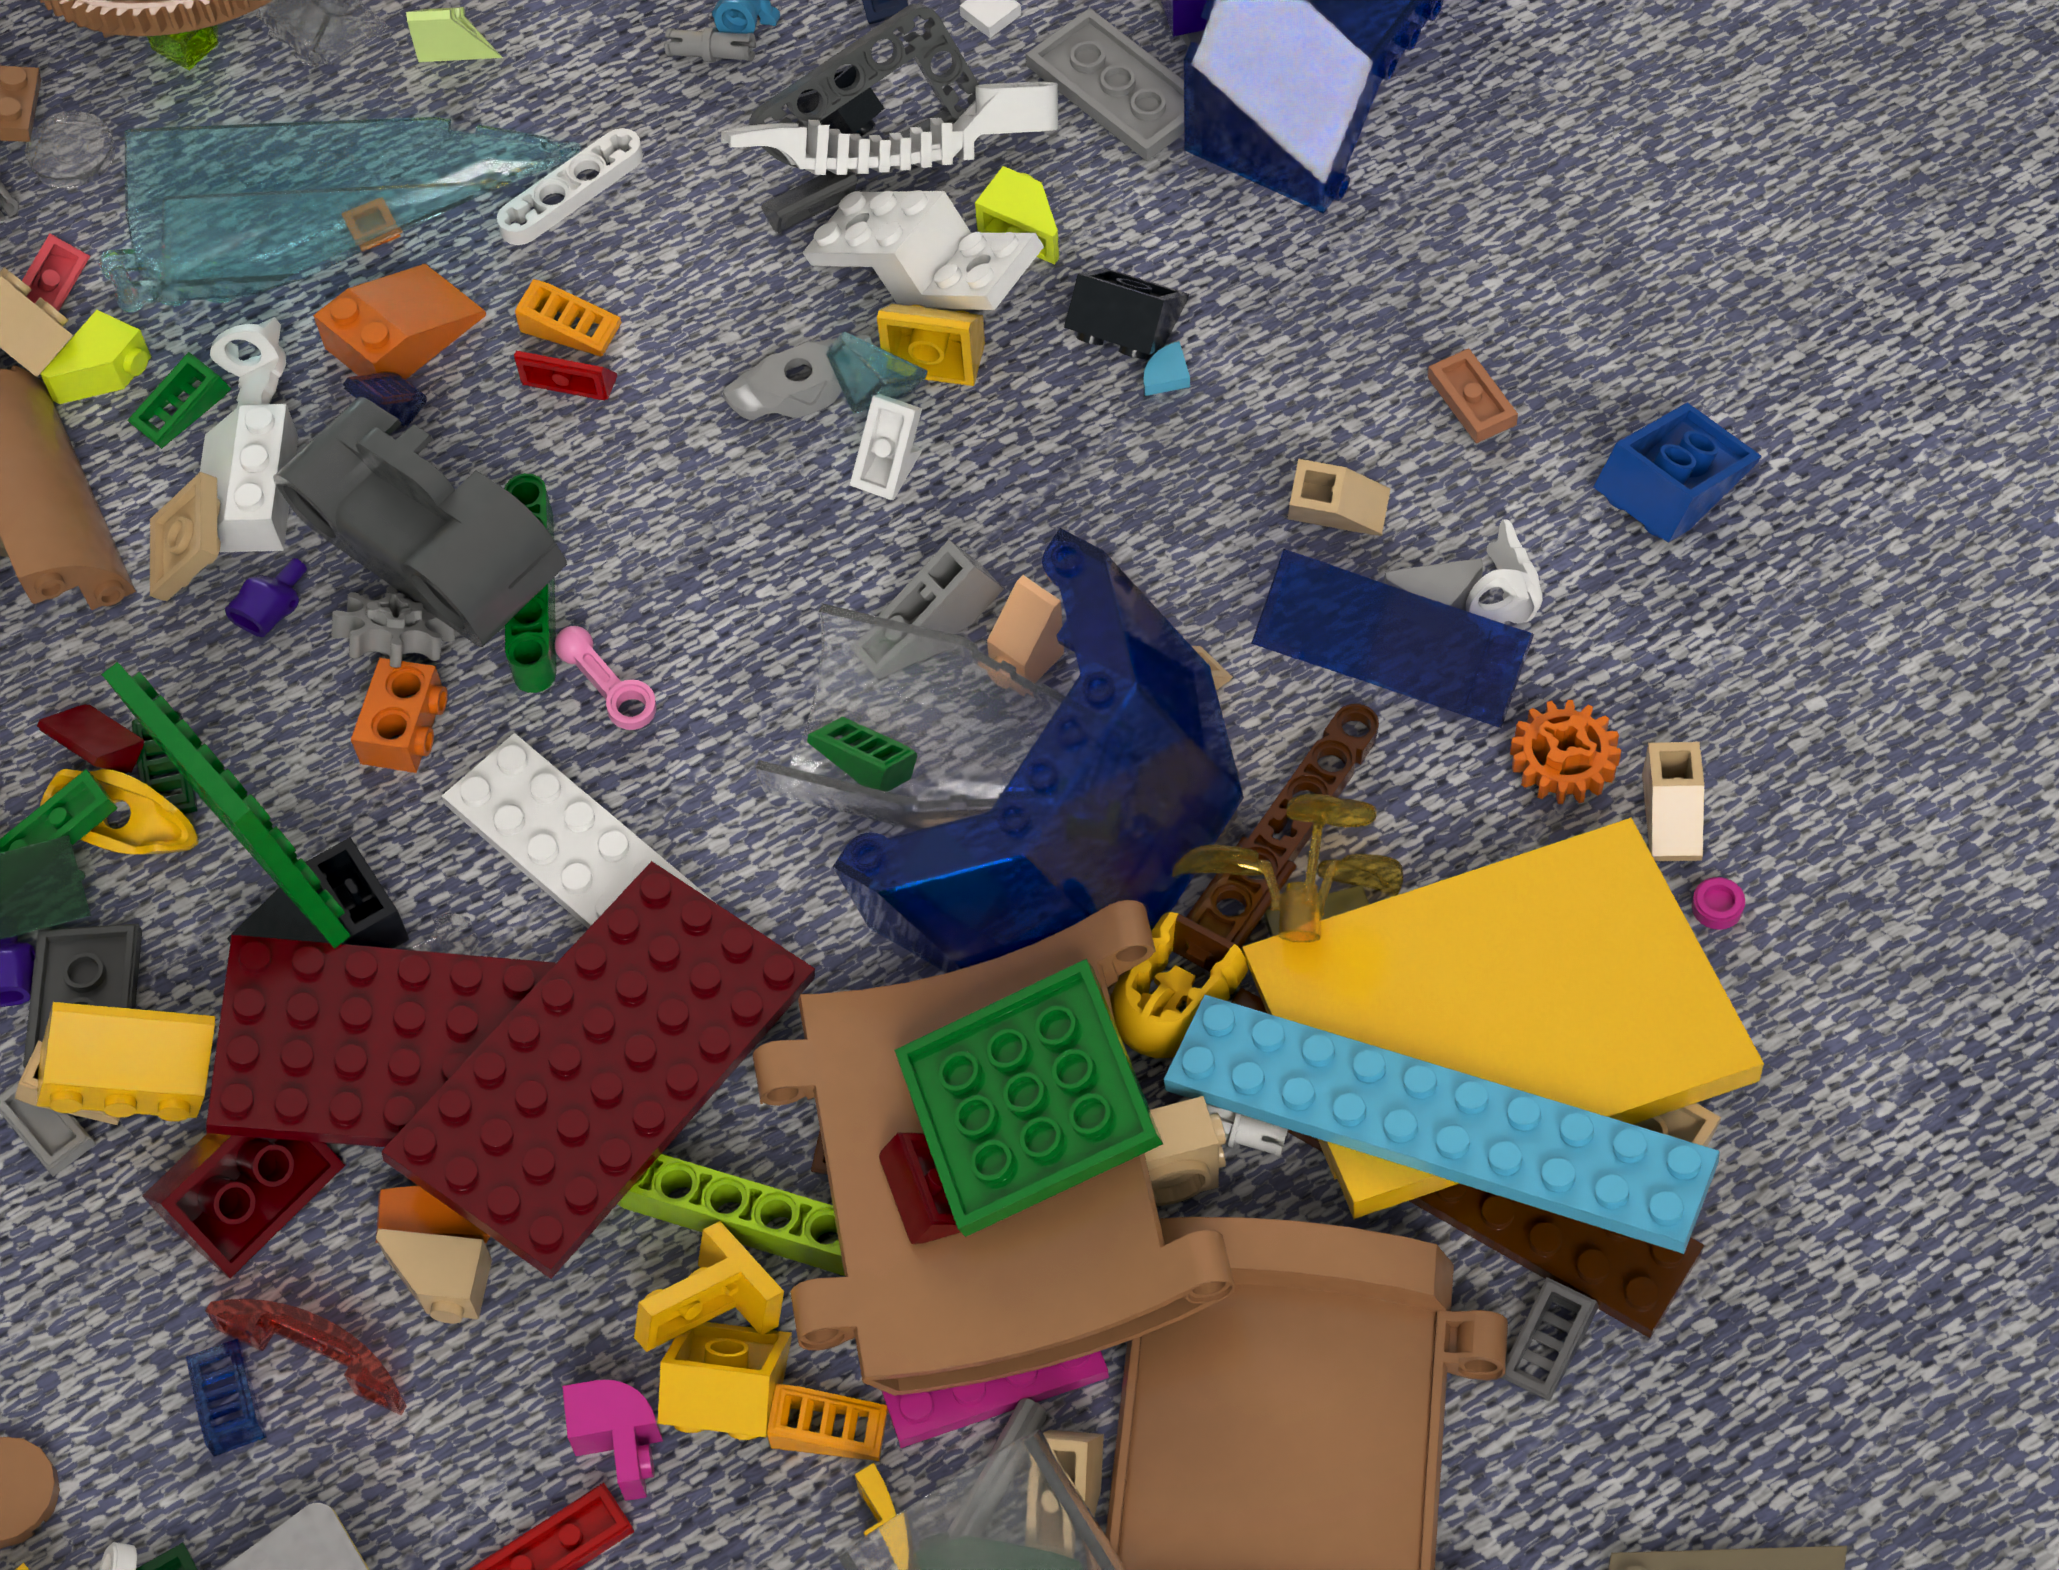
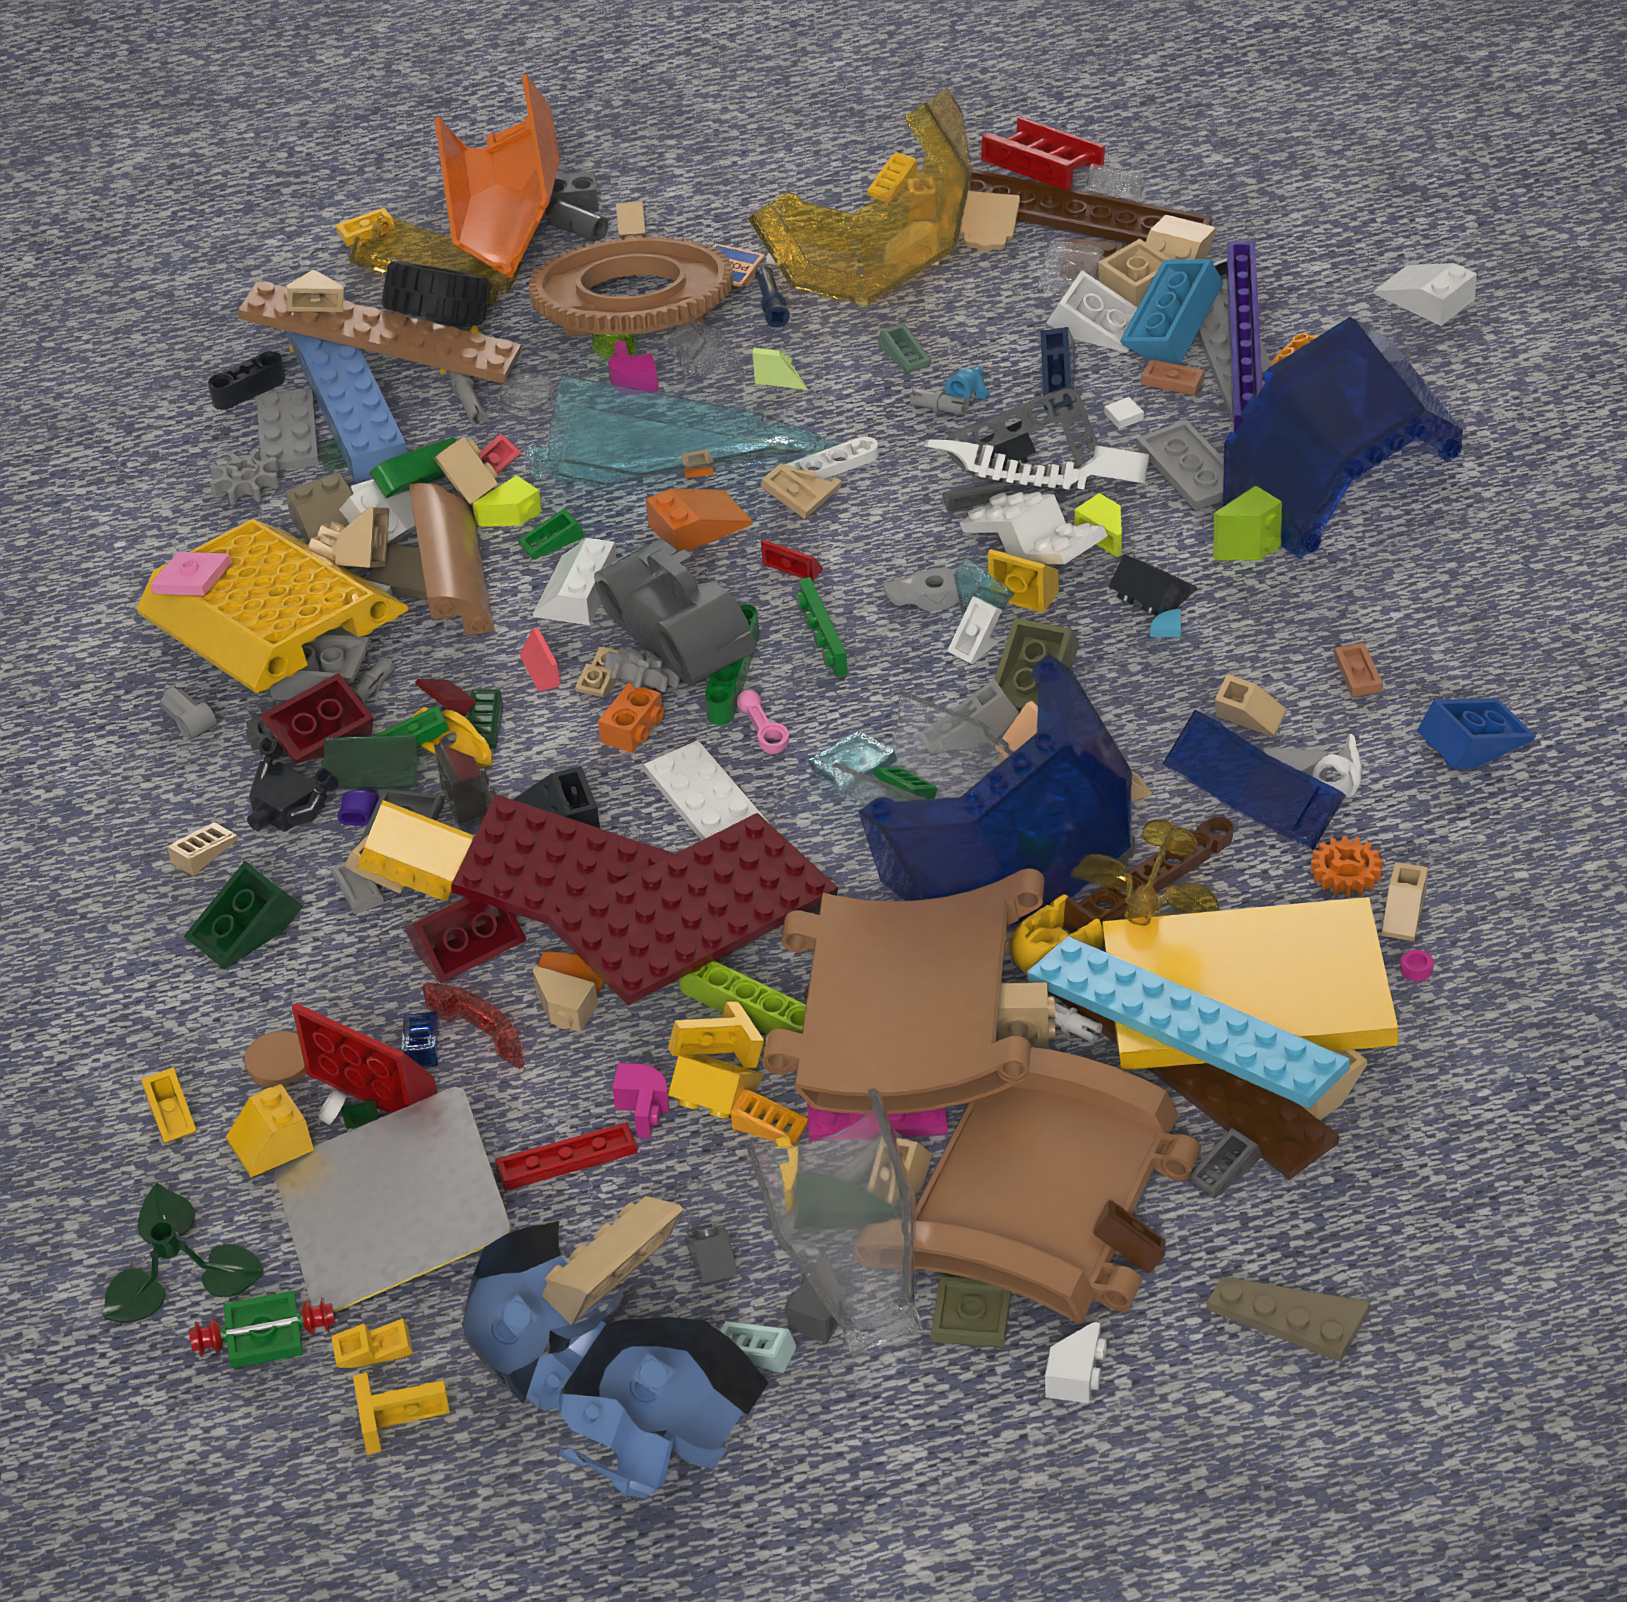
camera: 15 degrees right, 15 degrees down
(151, 1488) = (359, 1063): none -> red slope
(172, 906) = (463, 786): none -> clear smoke slope
(184, 537) = (532, 602): tan plate -> none
(225, 639) = (540, 661): none -> coral slope
(226, 84) = (633, 371): none -> dark pink brick
(229, 802) = (514, 723): green plate -> none
(259, 373) = (602, 529): white hair -> none
(266, 599) = (570, 647): dark purple piece -> none
(318, 653) = (595, 678): none -> tan slope
(388, 392) = (679, 545): clear blue slope -> none
(542, 302) = (788, 519): light orange slope -> none
(543, 242) = (799, 488): none -> tan wing
(657, 497) = (824, 631): none -> green plate
(767, 720) = (855, 752): none -> clear light blue plate
(917, 1188) = (864, 999): dark red slope -> none
(994, 491) = (1024, 648): none -> olive slope
(1027, 1098) = (938, 958): green plate -> none
(1243, 182) = (1248, 527): none -> lime slope
(1454, 1519) = (1130, 1237): none -> reddish brown slope

